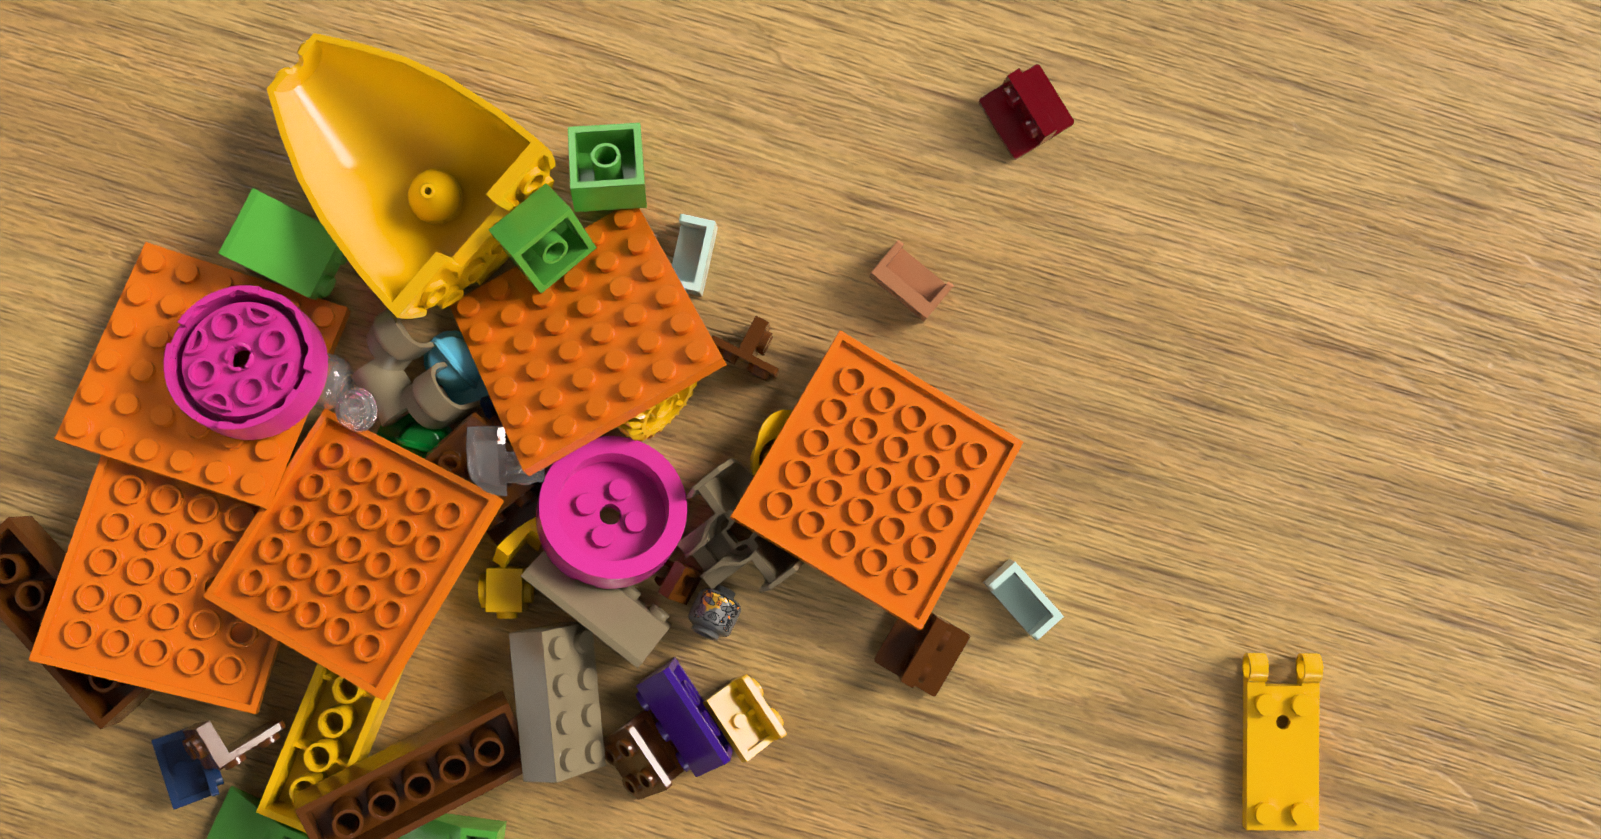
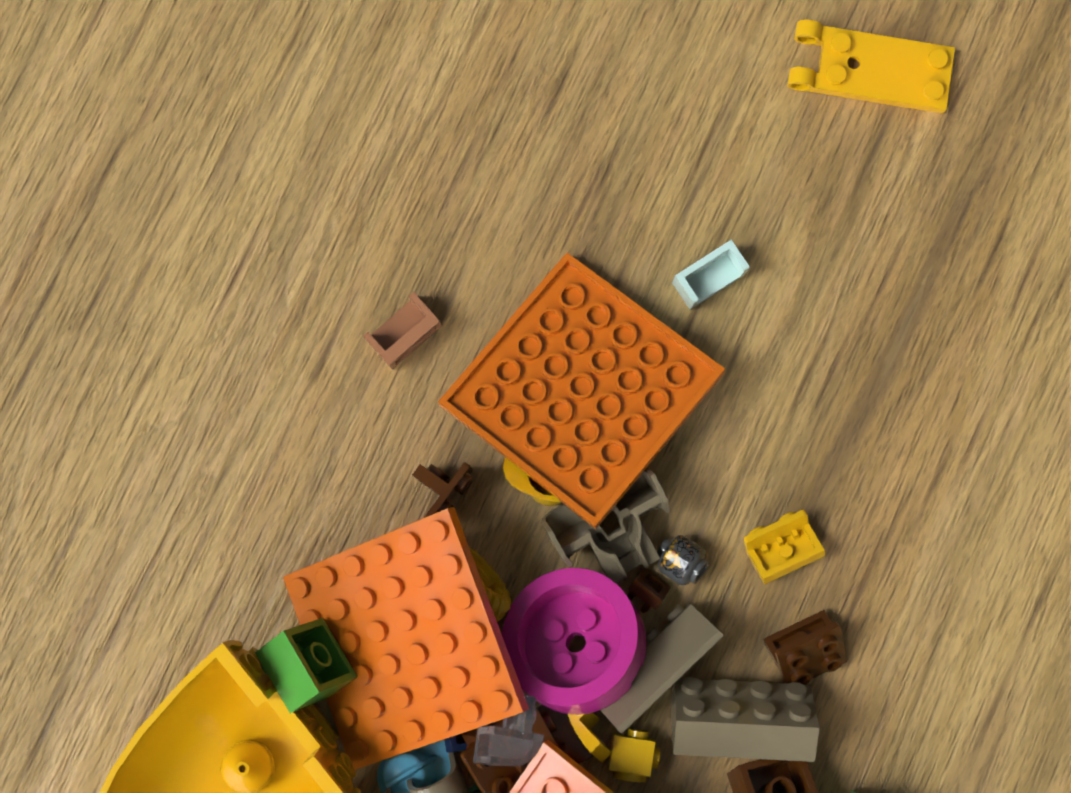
camera: 85 degrees left, 5 degrees down
(606, 167) = (248, 595): bright green brick -> none
(684, 718) = (777, 603): dark purple slope -> none
(694, 252) = (340, 527): light aqua panel -> none
(924, 655) = (748, 376): reddish brown bracket -> none
(1026, 111) = (264, 203): dark red bracket -> none

